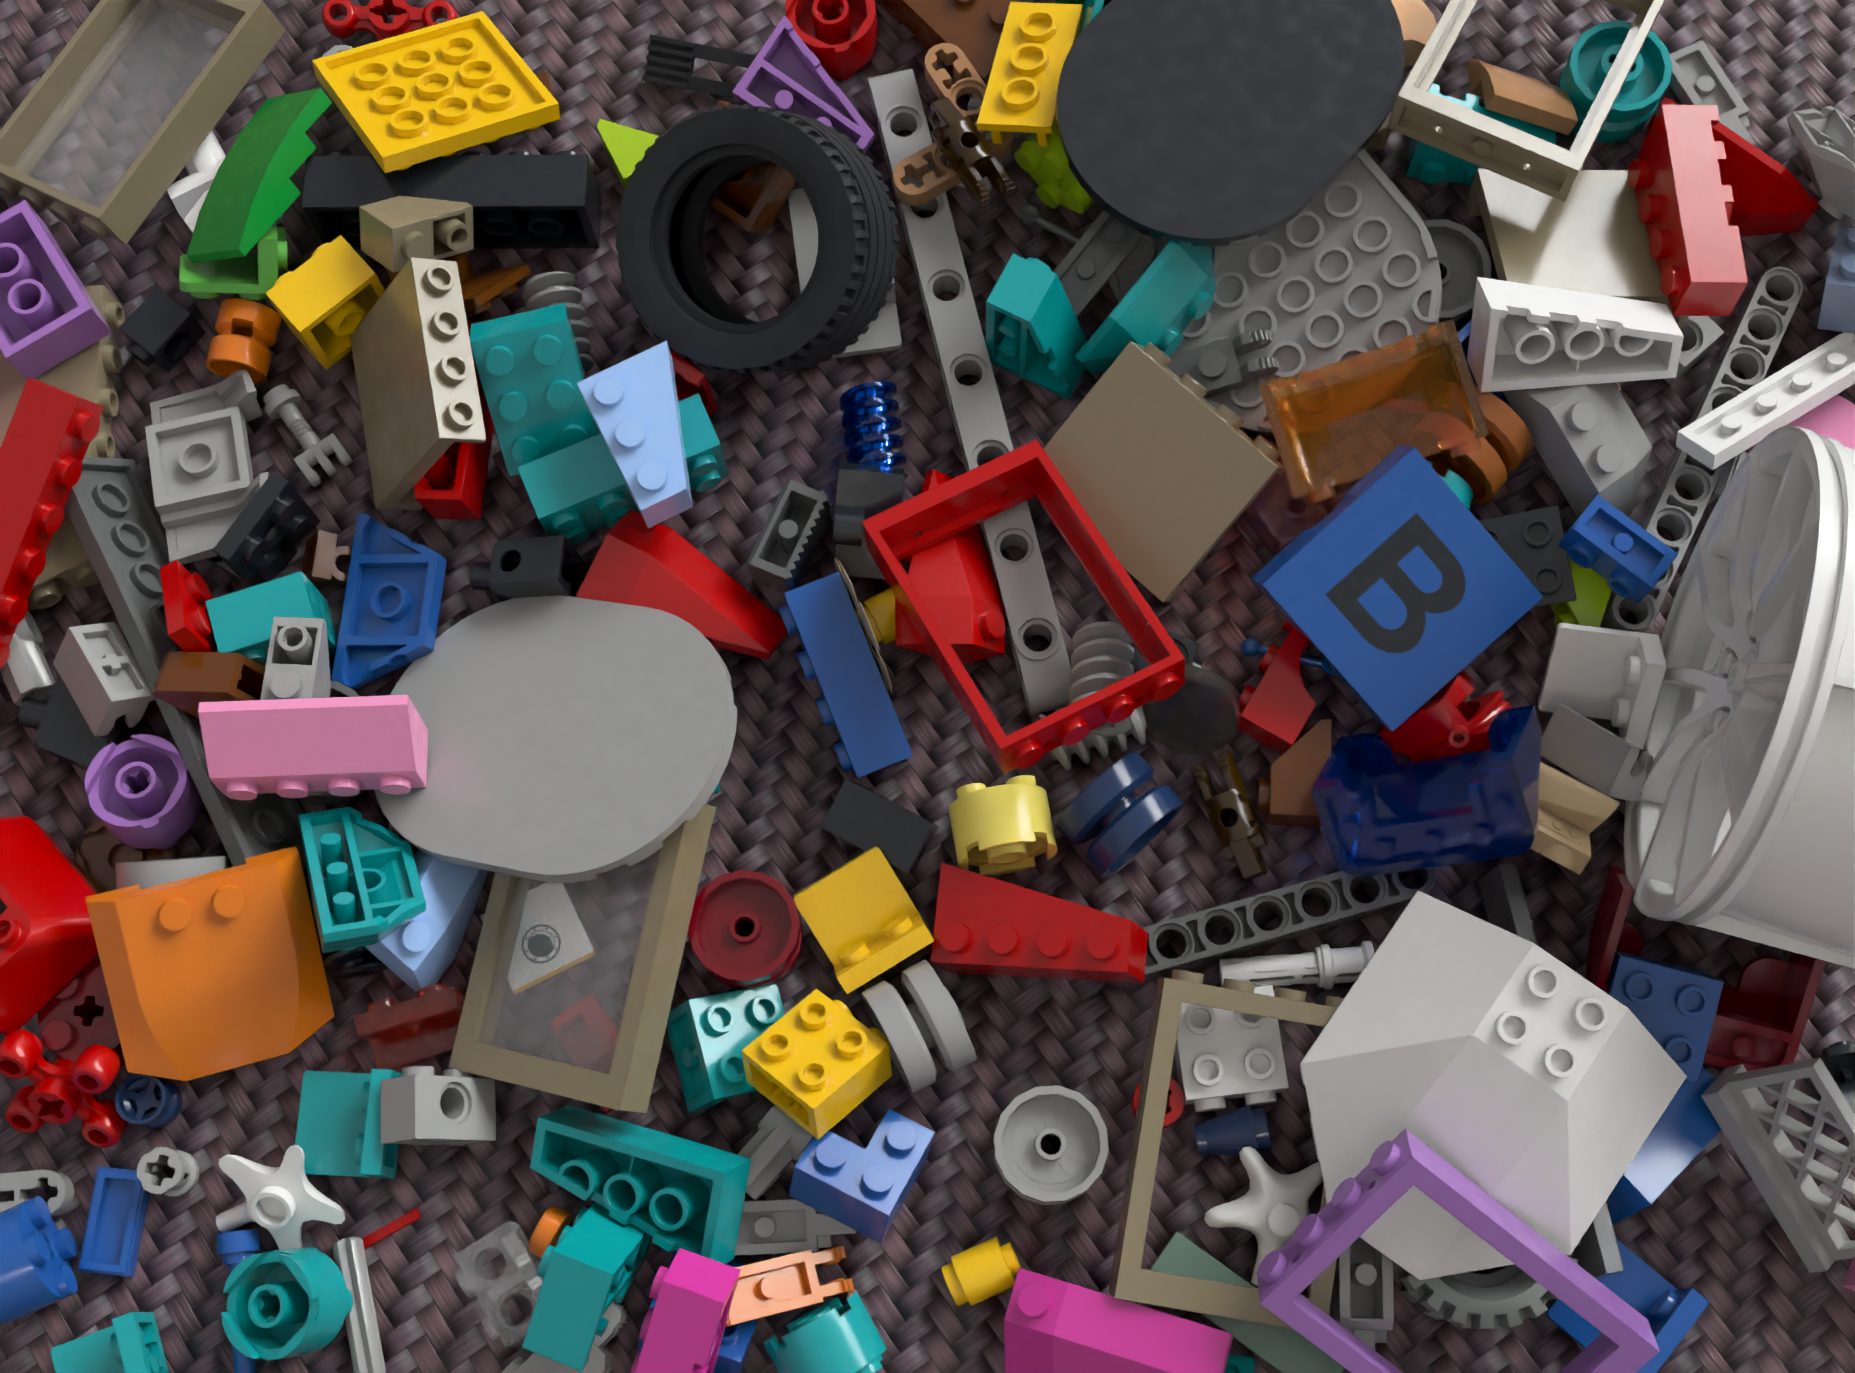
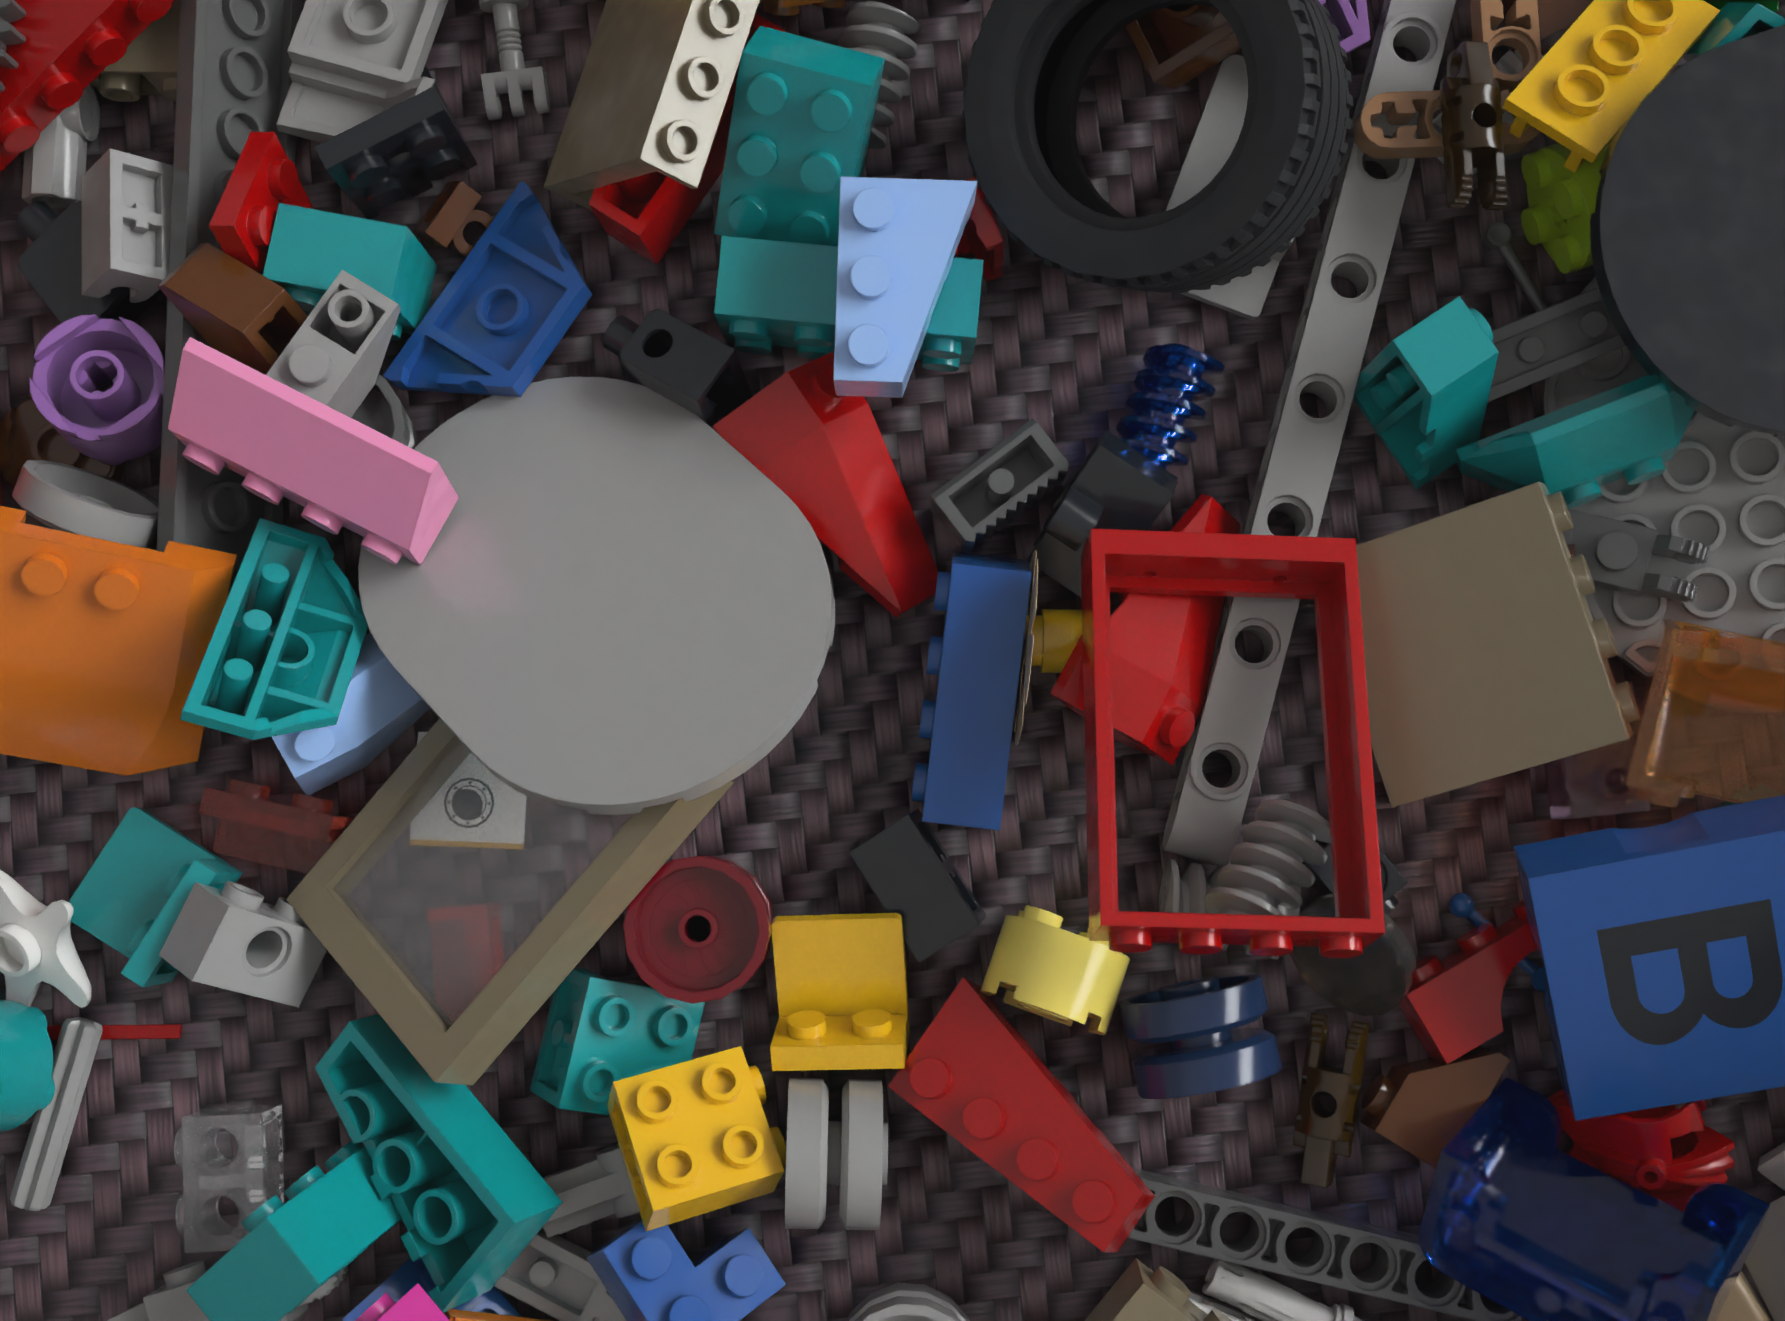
camera: 25 degrees right, 10 degrees up
(548, 1230) = (305, 1142): orange tile -> none

